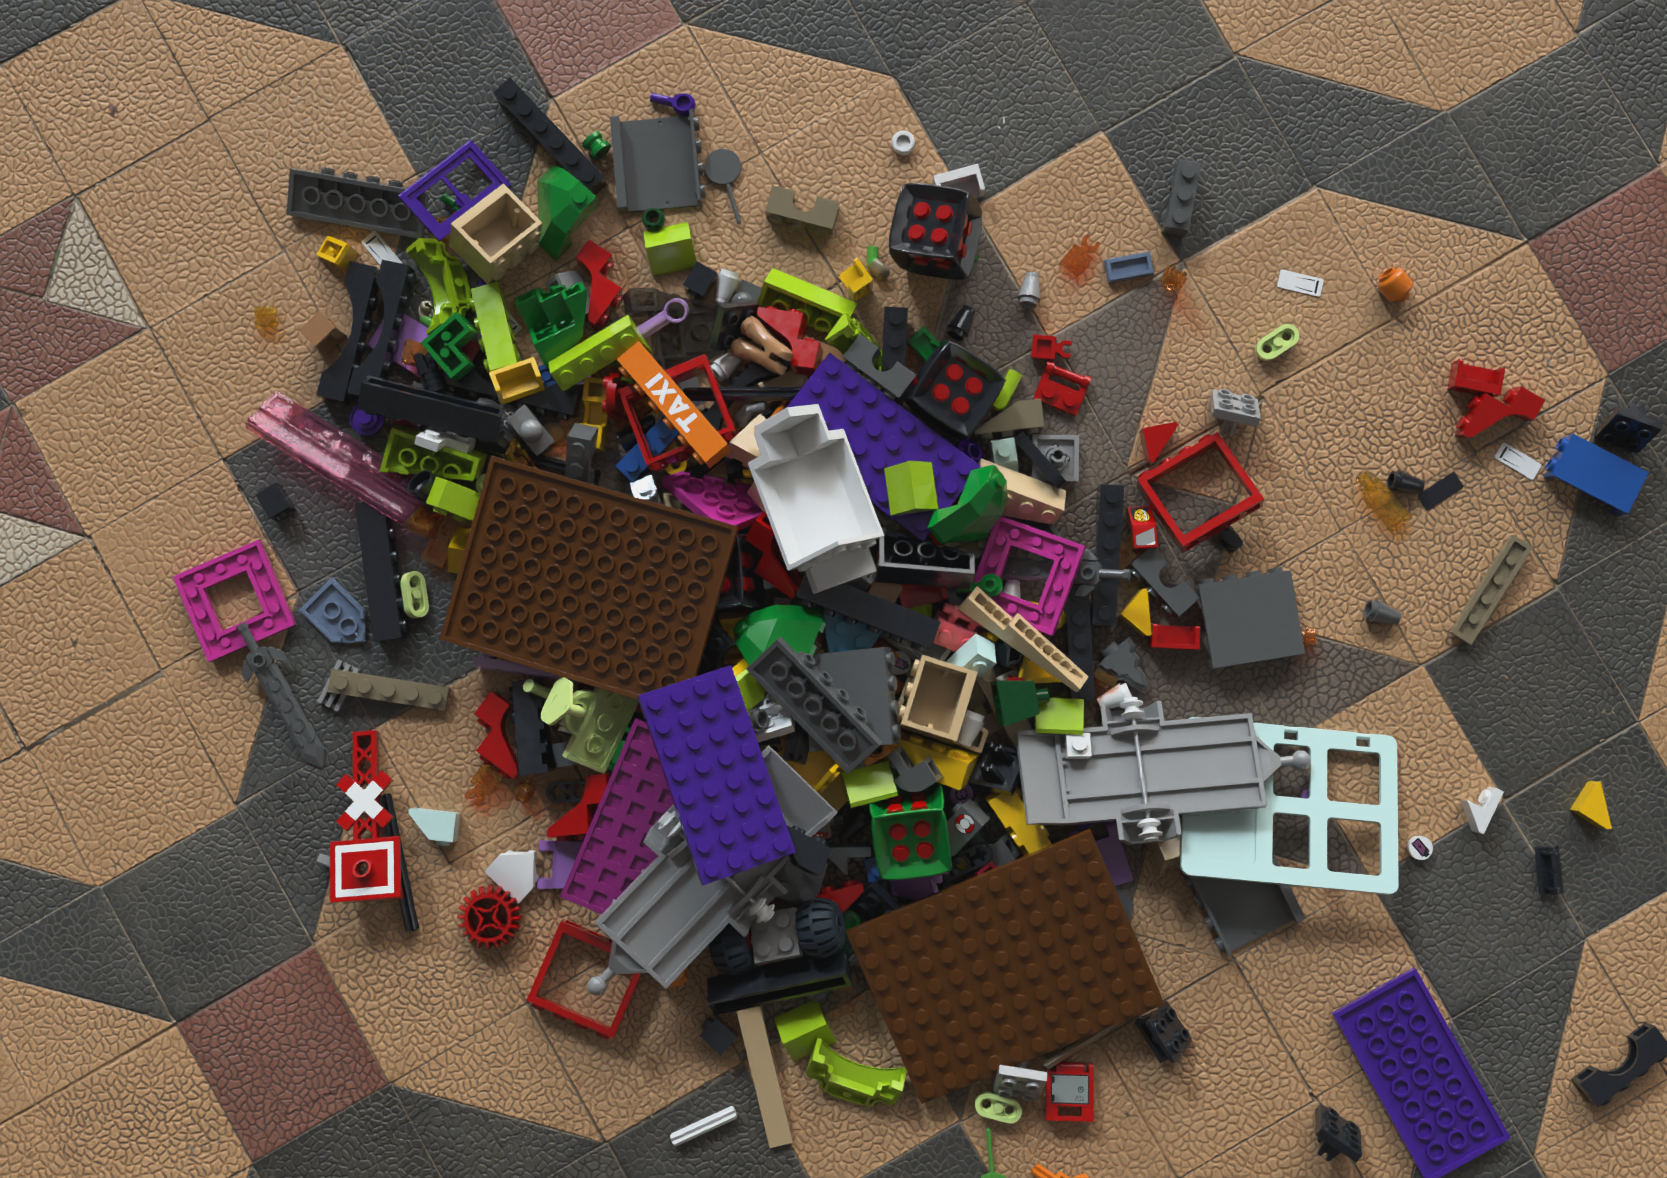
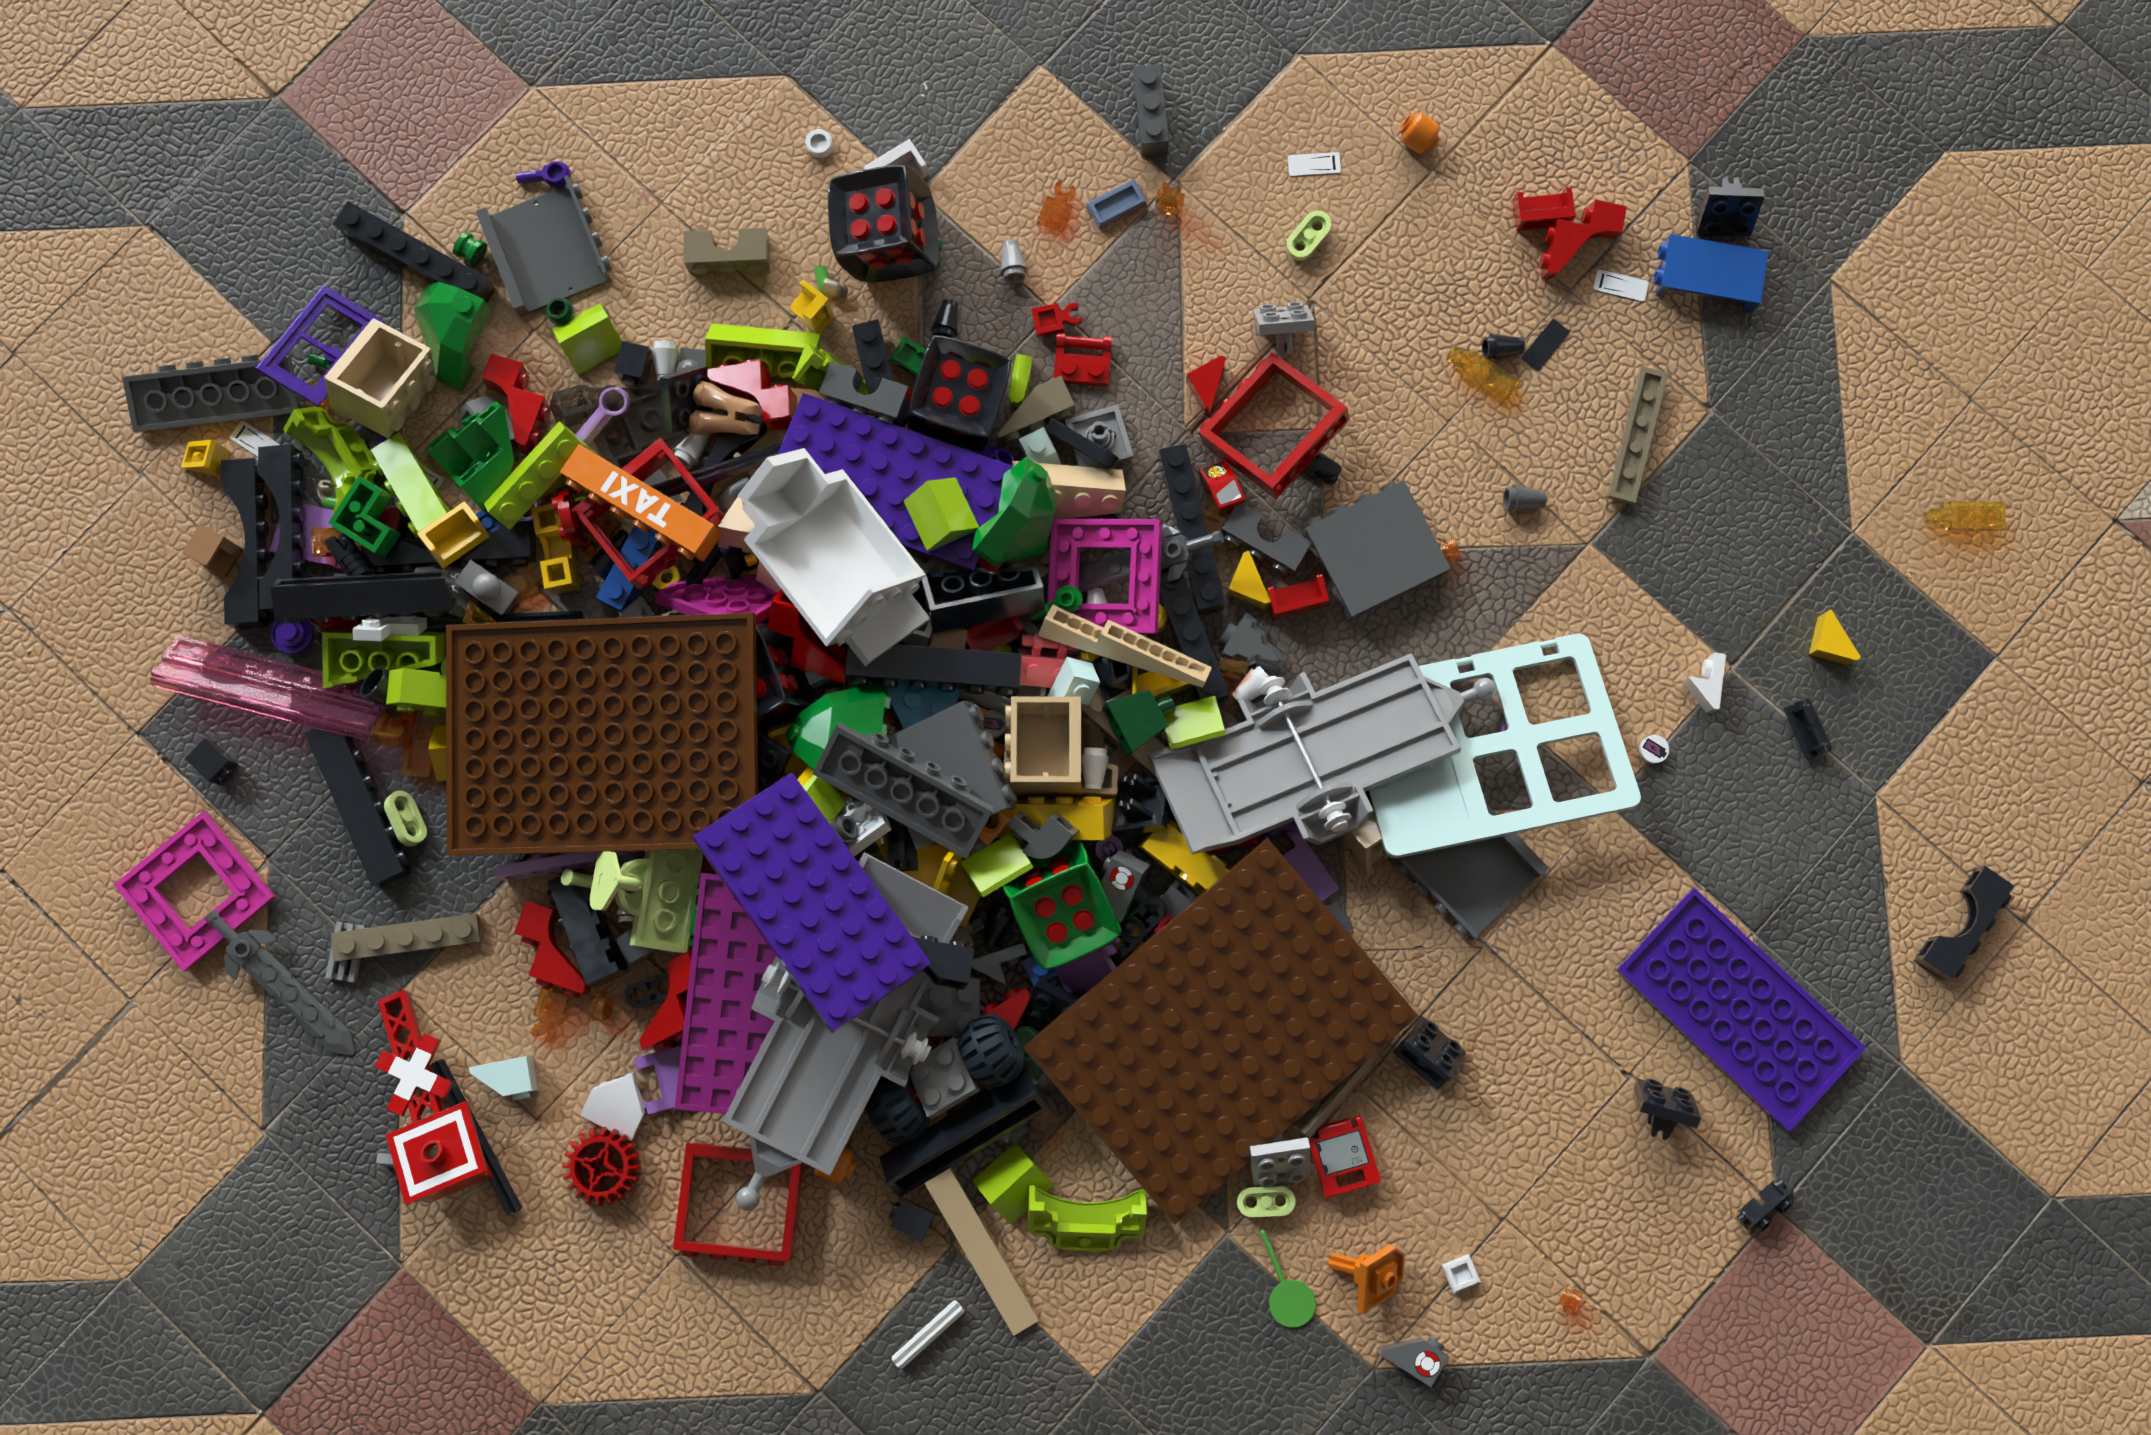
camera: 20 degrees left, 5 degrees down
(261, 312) = (133, 553): clear yellow plate -> none
(336, 614) = (319, 870): sand blue tile -> none
(579, 453) = (548, 589): dark grey arch -> none
(723, 168) = (624, 231): dark grey piece -> none
(1078, 746) = (1224, 750): white plate -> none

